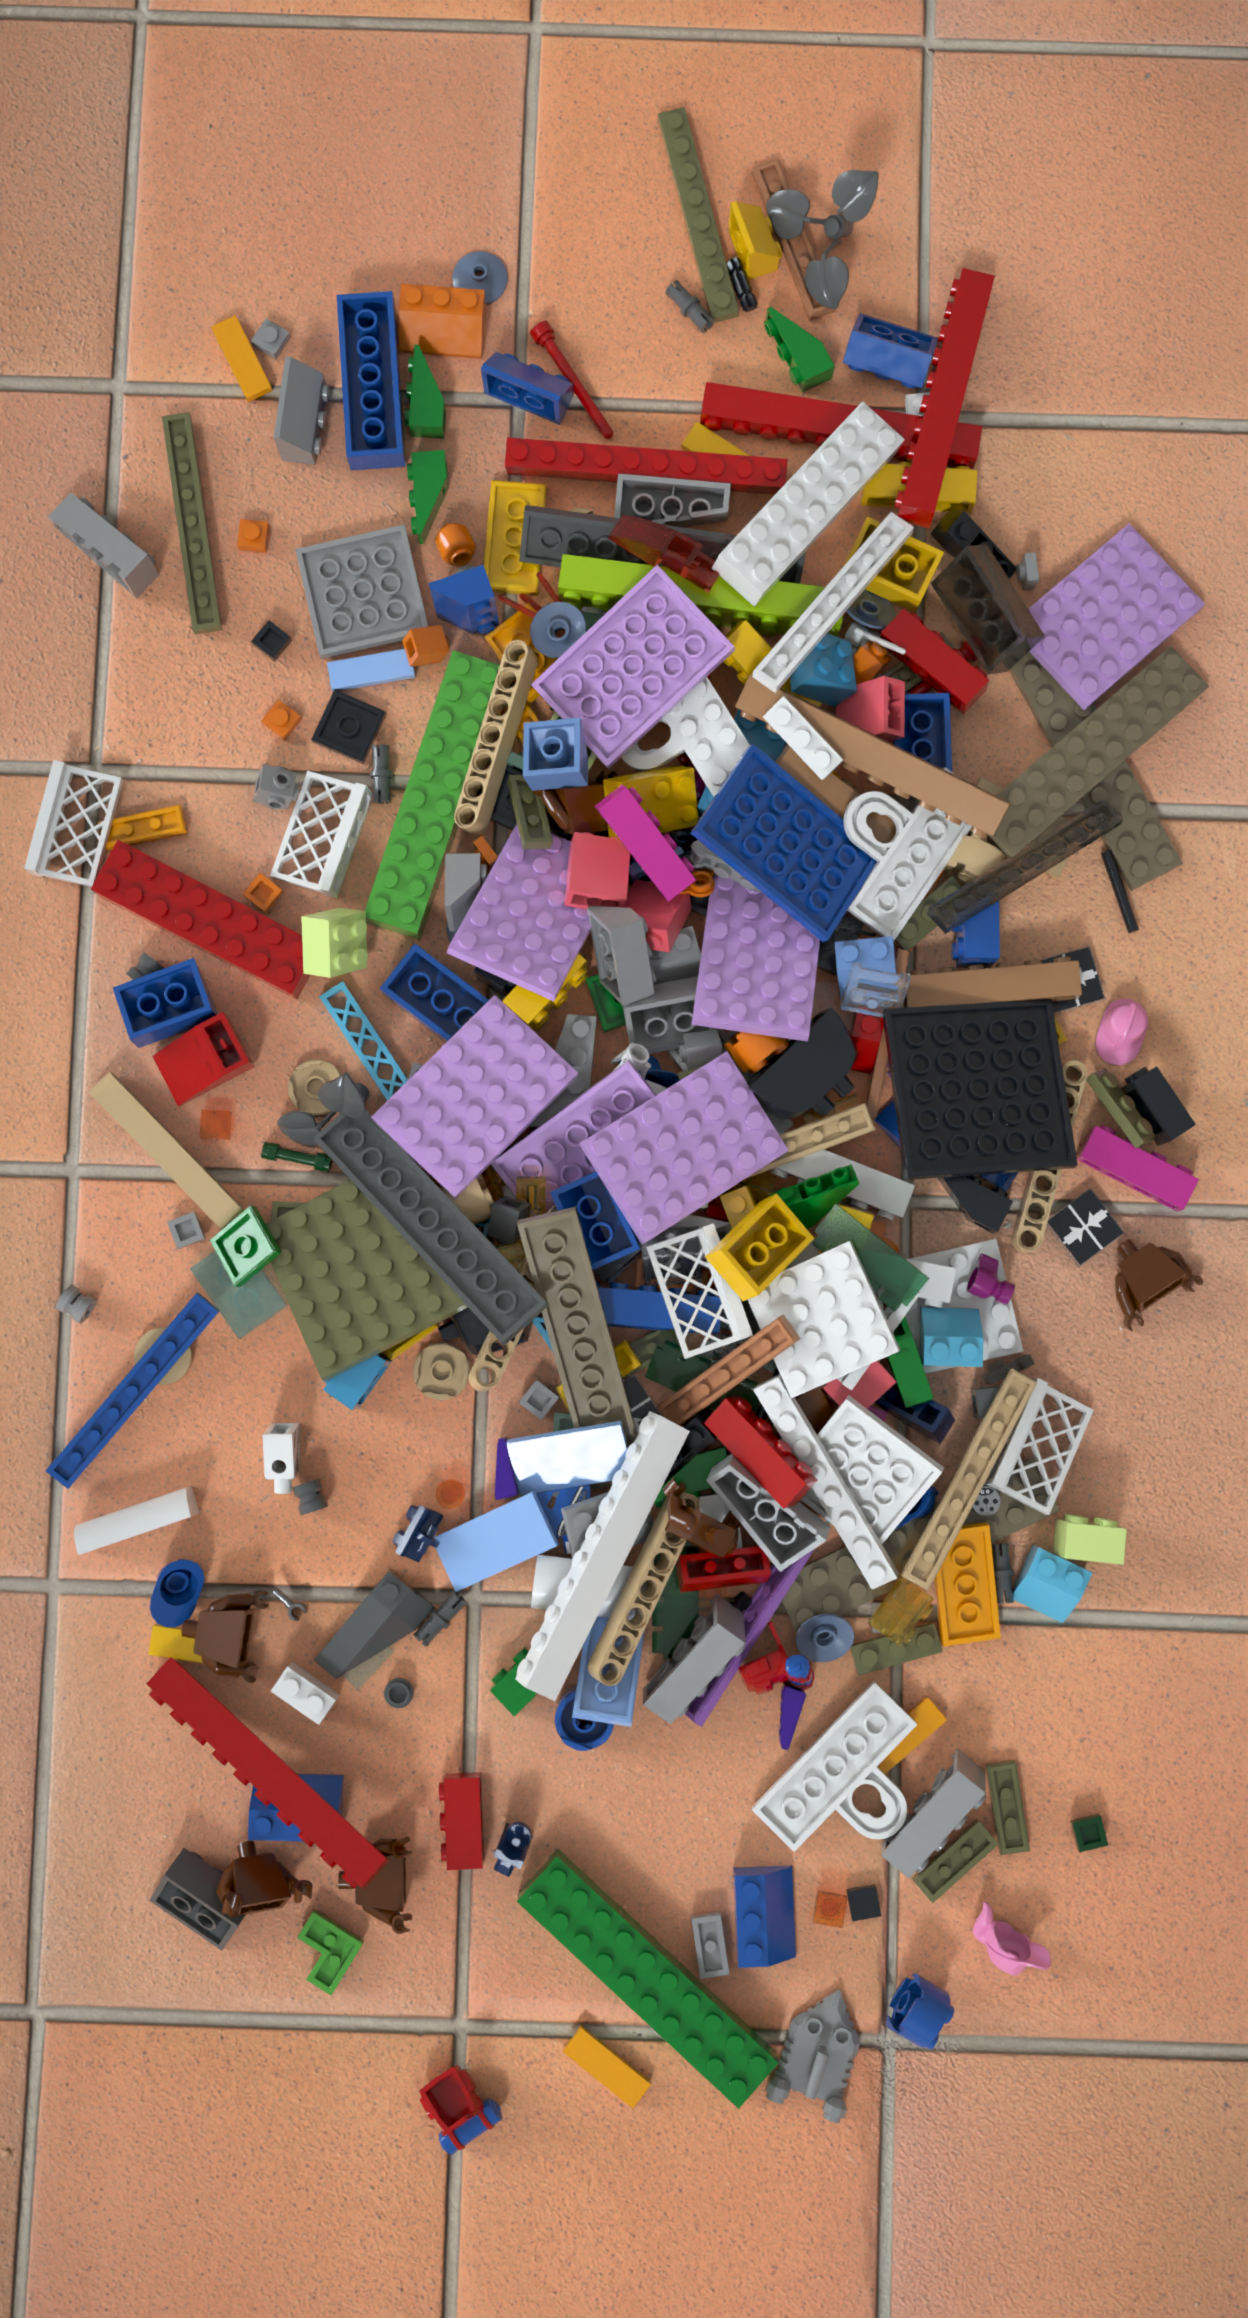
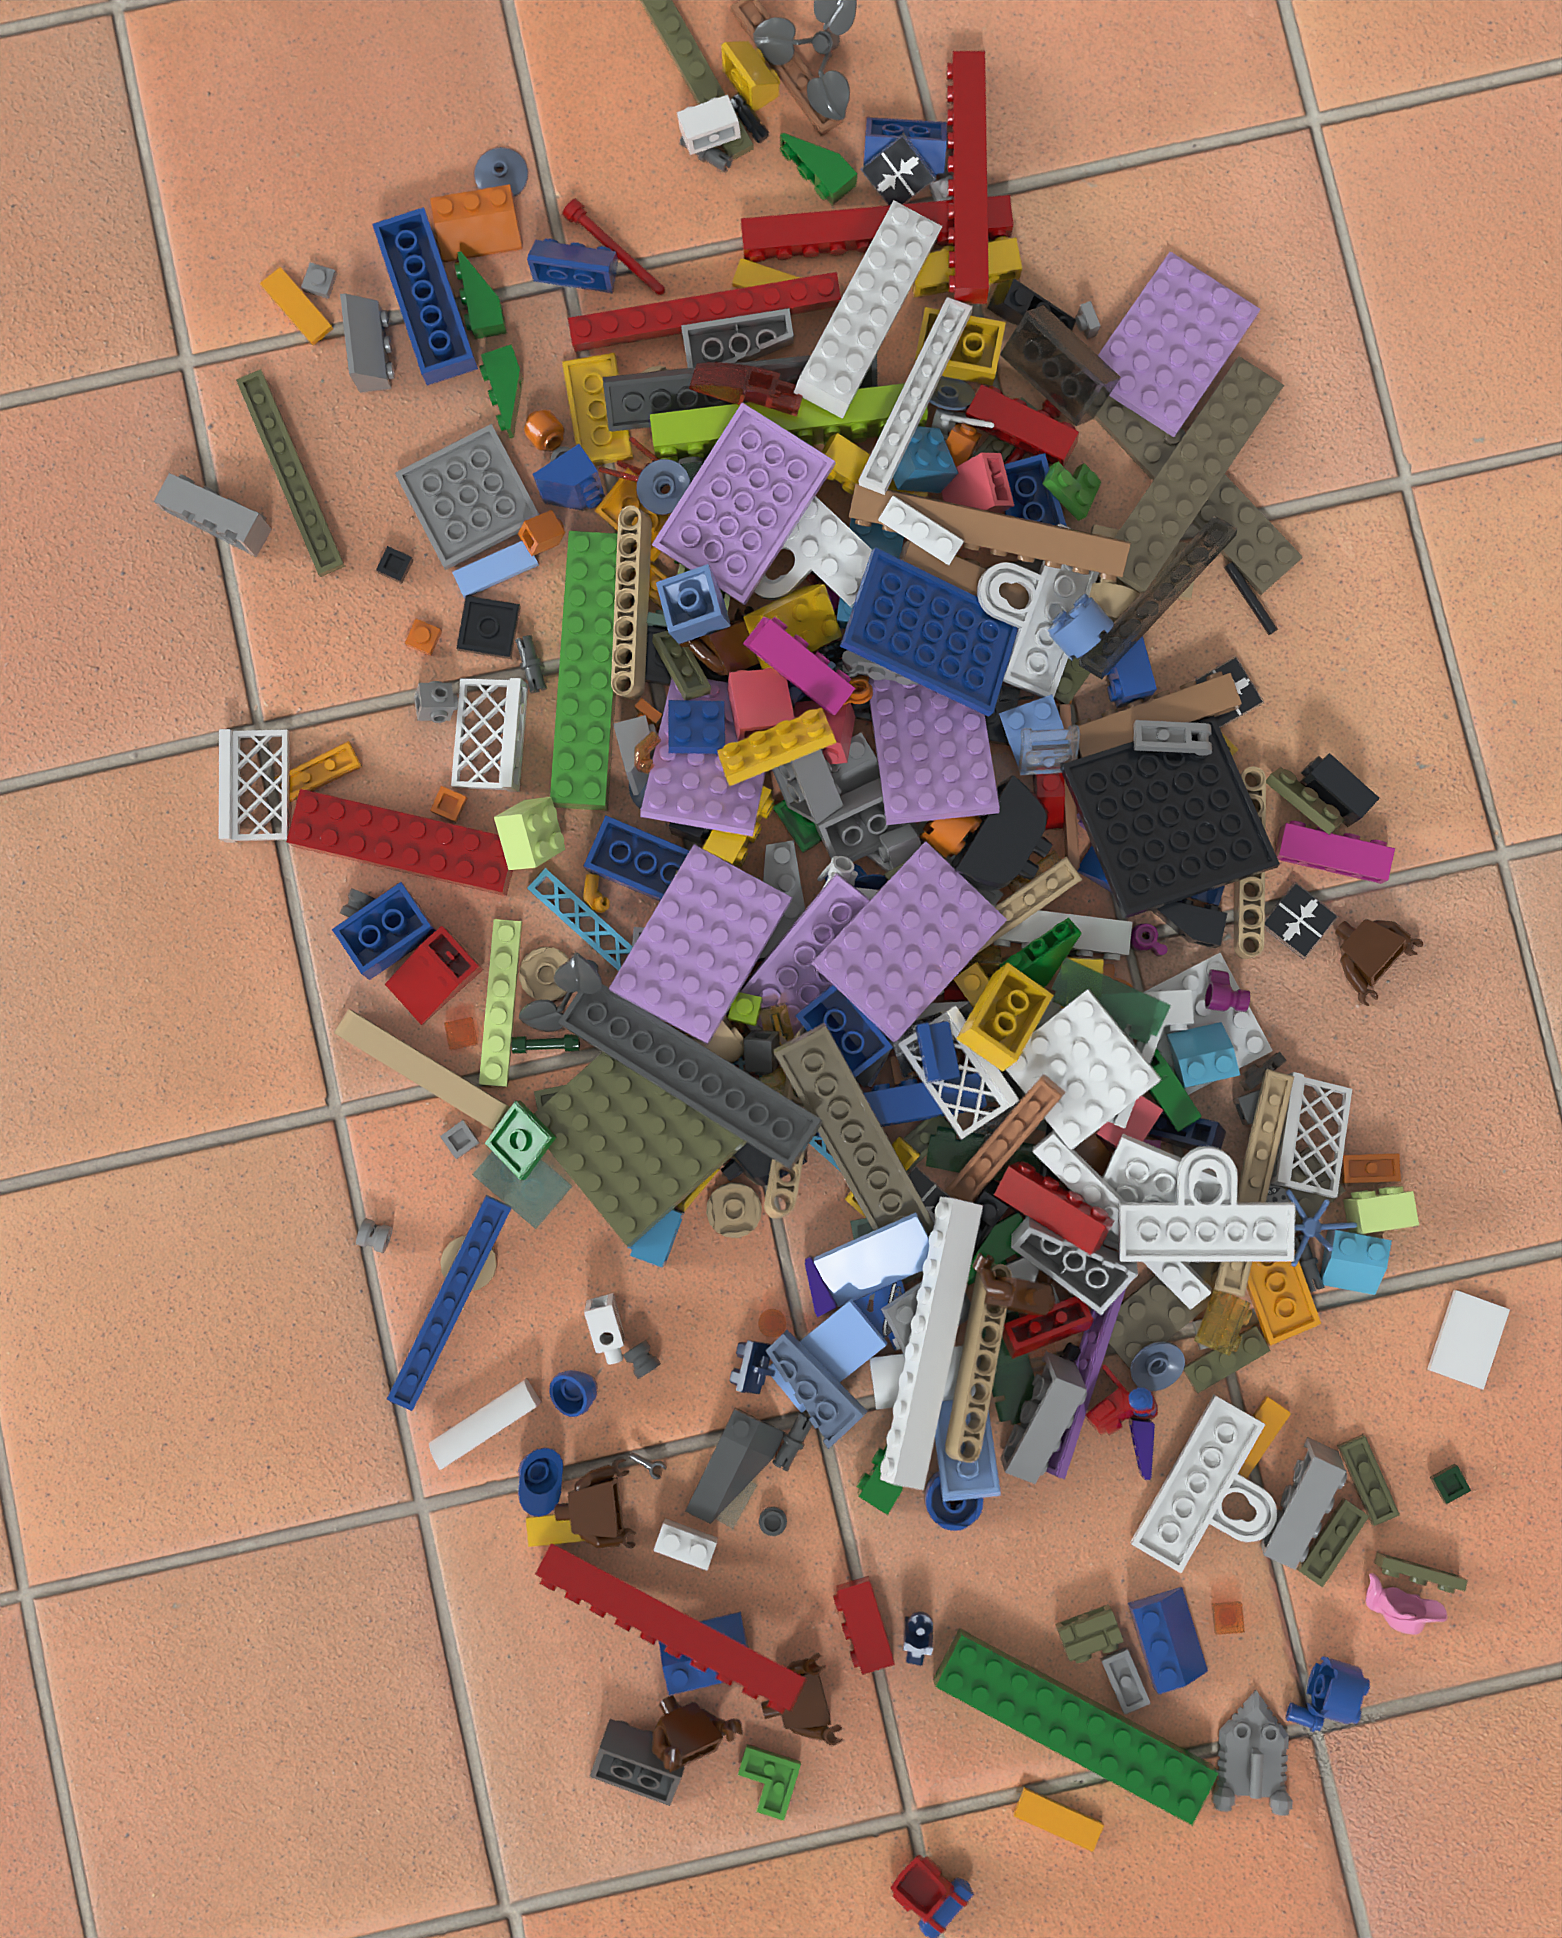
camera: 10 degrees left, 0 degrees up
(232, 1512) = (573, 1392): none -> blue hat
(253, 535) = (351, 470): orange plate -> none
(263, 1104) = (500, 1003): none -> yellowish green plate
(382, 1021) = (593, 896): none -> light orange arm
(466, 888) = (642, 752): none -> clear orange arm
(481, 1582) = (825, 1399): none -> sand blue wing
(503, 1173) = (745, 1009): none -> lime plate
(527, 878) = (696, 726): none -> blue plate
(539, 1399) = (832, 1213): light grey plate -> none
(599, 917) = (775, 746): none -> yellow plate
(683, 1265) = (937, 1051): none -> blue panel
(686, 1888) = (1089, 1634): none -> olive brick
(698, 280) = (708, 124): none -> white brick
(863, 1902) = (1257, 1603): black tile -> none
(876, 374) = (898, 171): none -> black tile
(879, 2028) = (1303, 1717): none -> blue pin
(909, 1514) = (1206, 1230): none -> white plate
(923, 1205) = (1145, 938): none -> magenta piece
(938, 876) = (1080, 628): none -> medium blue brick
(968, 739) = (1074, 491): none -> bright green plate
(1002, 1010) = (1172, 737): none -> light grey plate
(1016, 1538) = (1312, 1227): none -> medium blue plant
(1035, 1915) = (1420, 1573): none -> olive plate
(1091, 1494) = (1371, 1168): none -> orange plate
(1121, 1032) = (1286, 729): bright pink piece -> none
(1145, 1692) = (1468, 1339): none -> white tile

